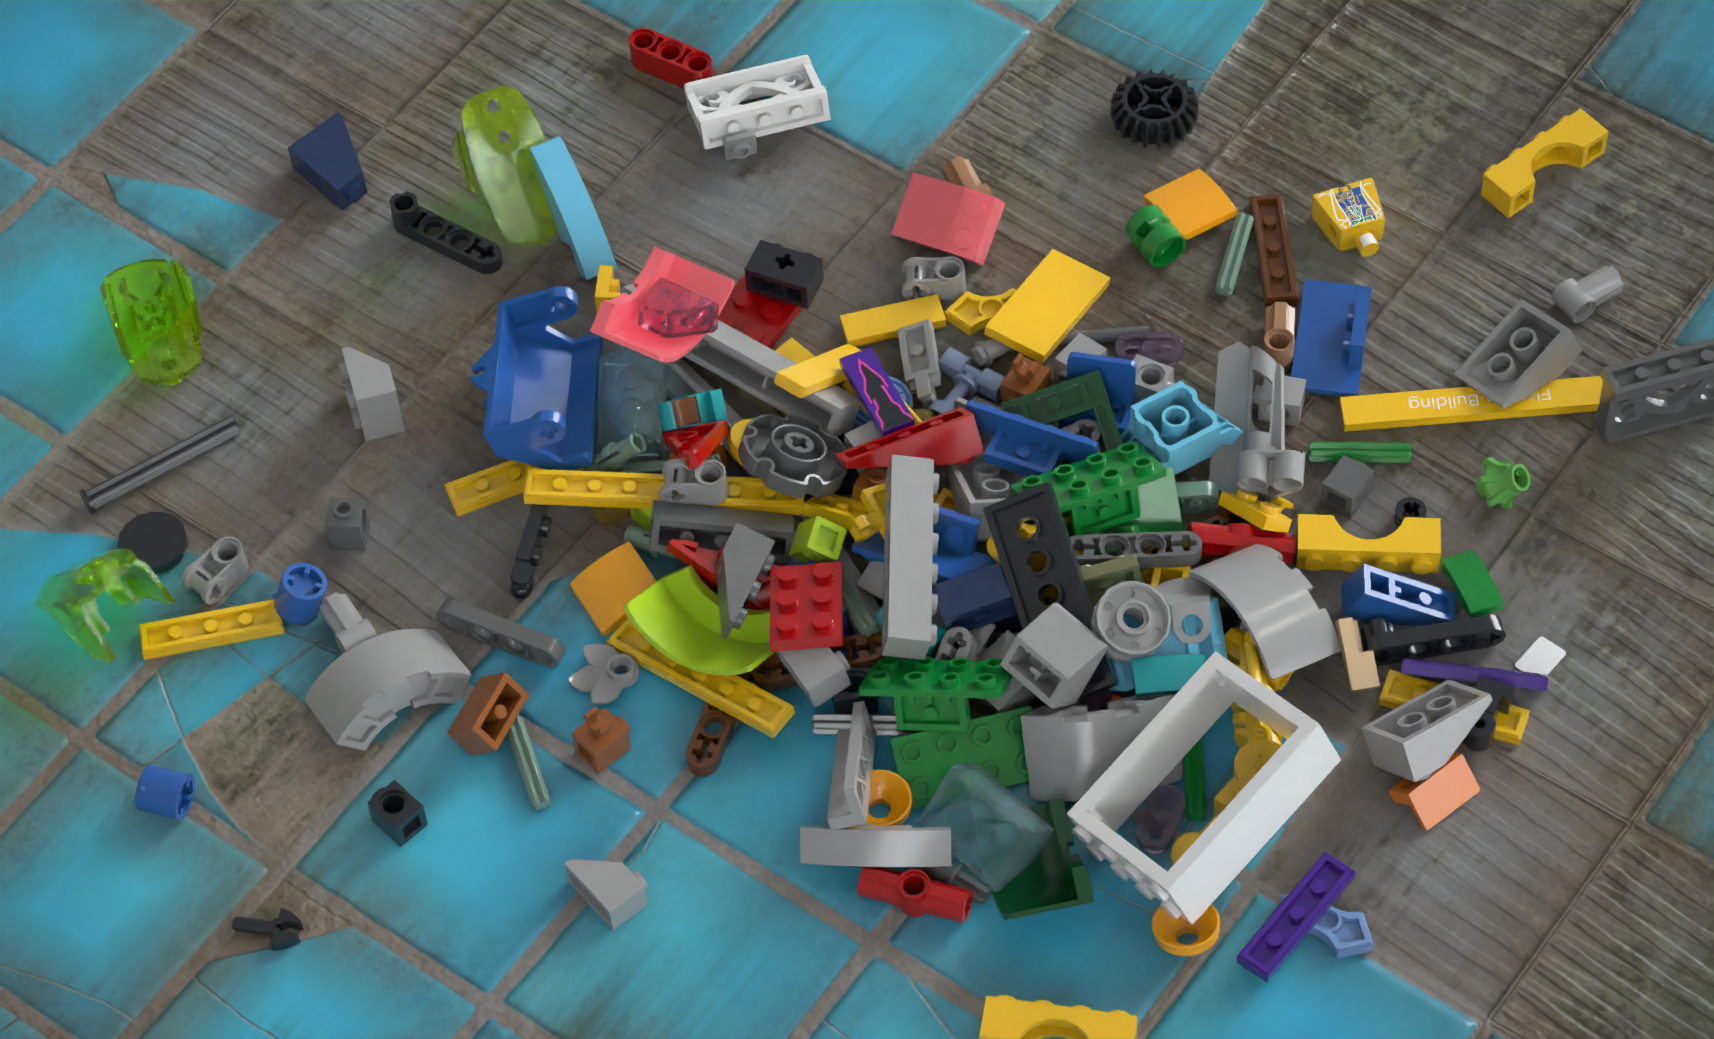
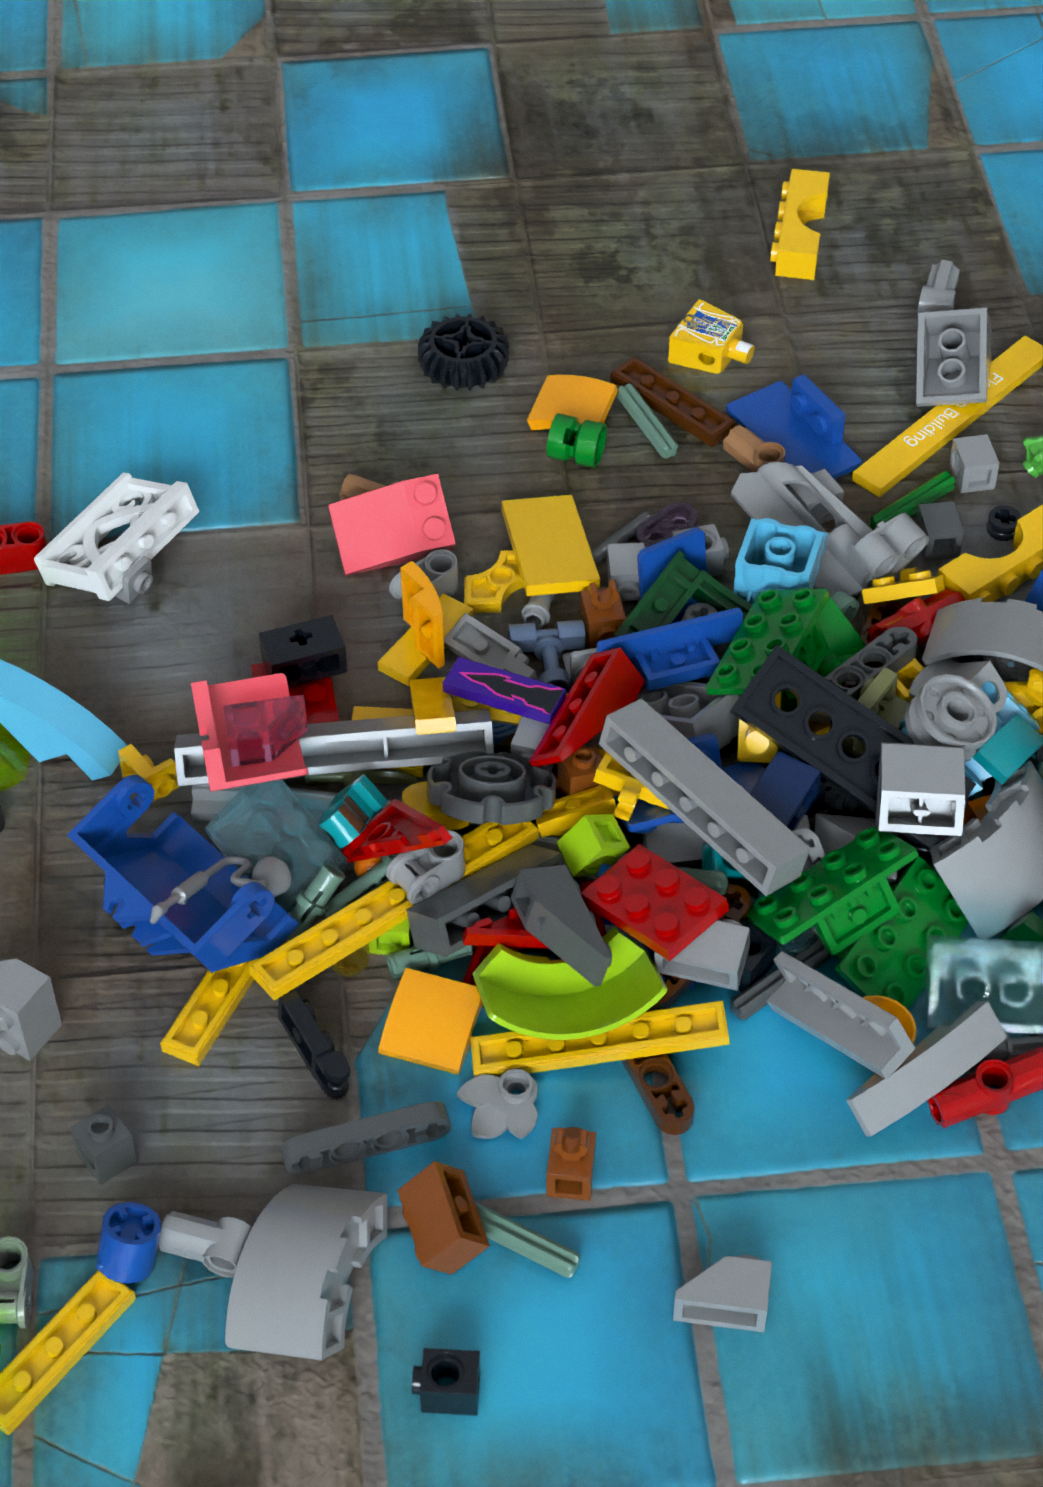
camera: 45 degrees left, 5 degrees down
(595, 419) = (268, 871): none -> light grey piece
(887, 301) = (423, 613): none -> light orange slope
(1439, 452) = (974, 463): none -> light grey brick

